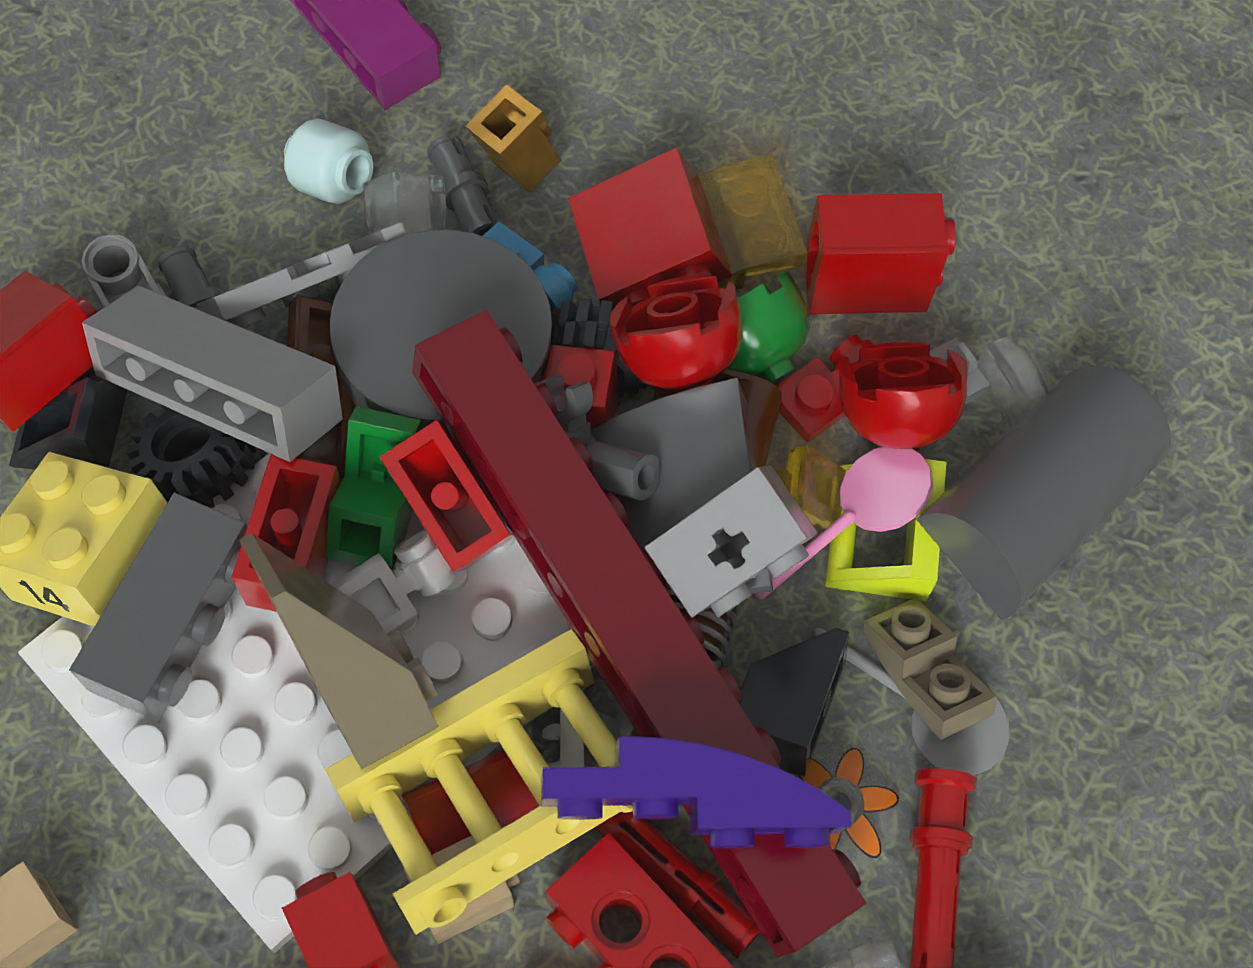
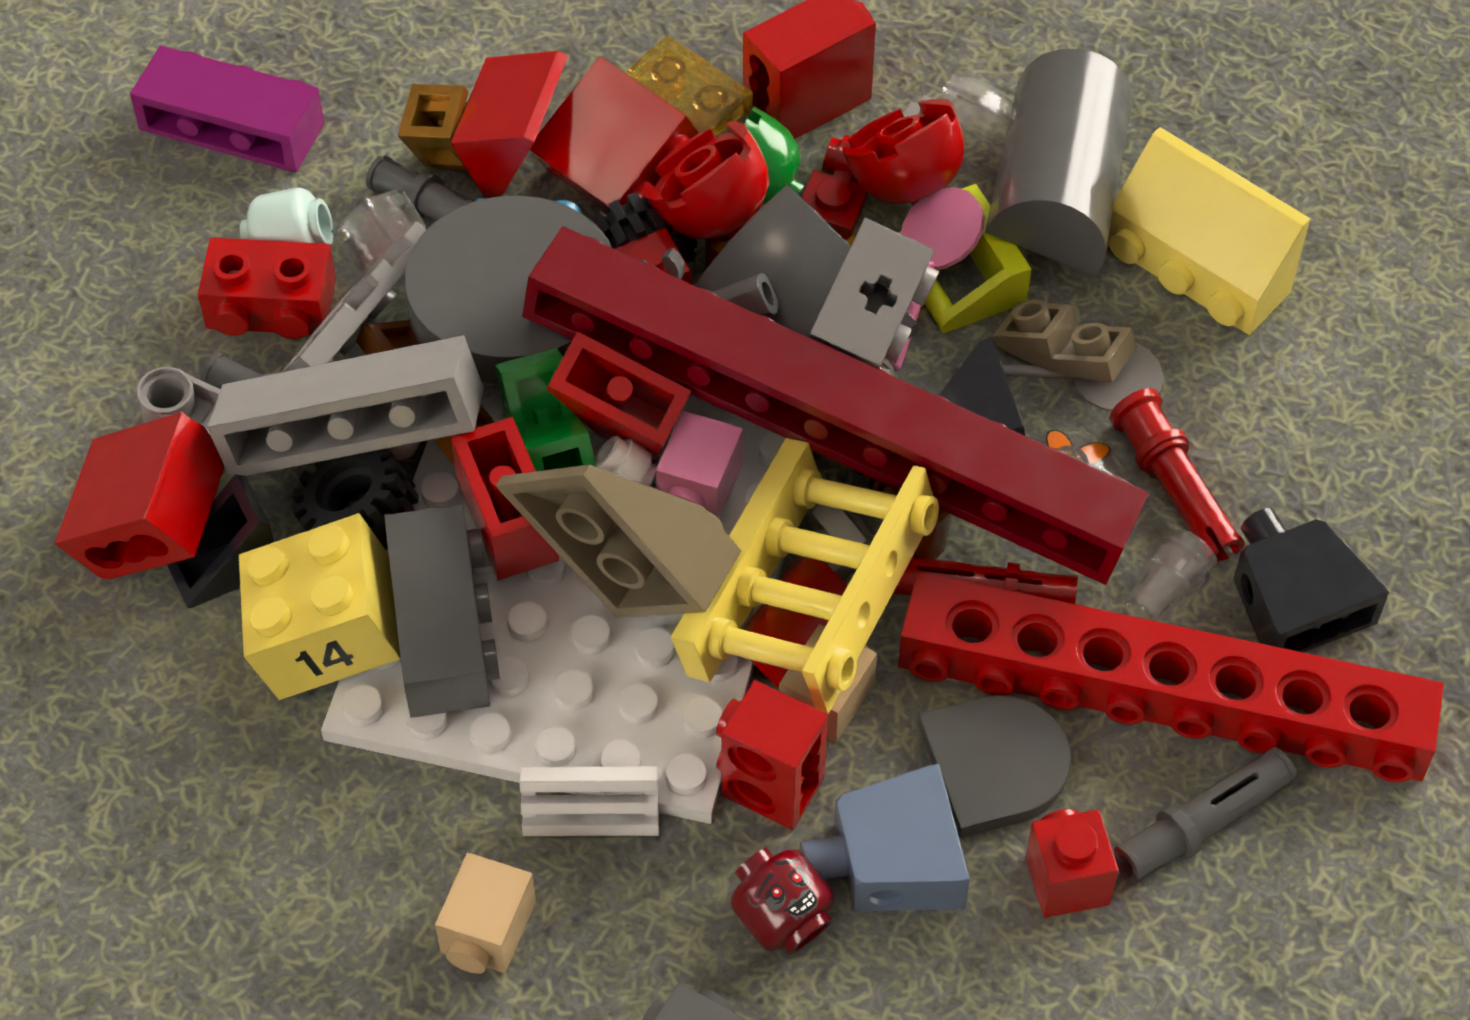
camera: 30 degrees left, 10 degrees down
(176, 869) = (590, 810): none -> white tile
(271, 206) = (266, 286): none -> red brick
(485, 606) = (701, 461): none -> bright pink brick
(567, 157) = (505, 116): none -> red slope
(725, 792) = (987, 456): dark purple slope -> none
(1135, 643) = (1207, 232): none -> light yellow slope

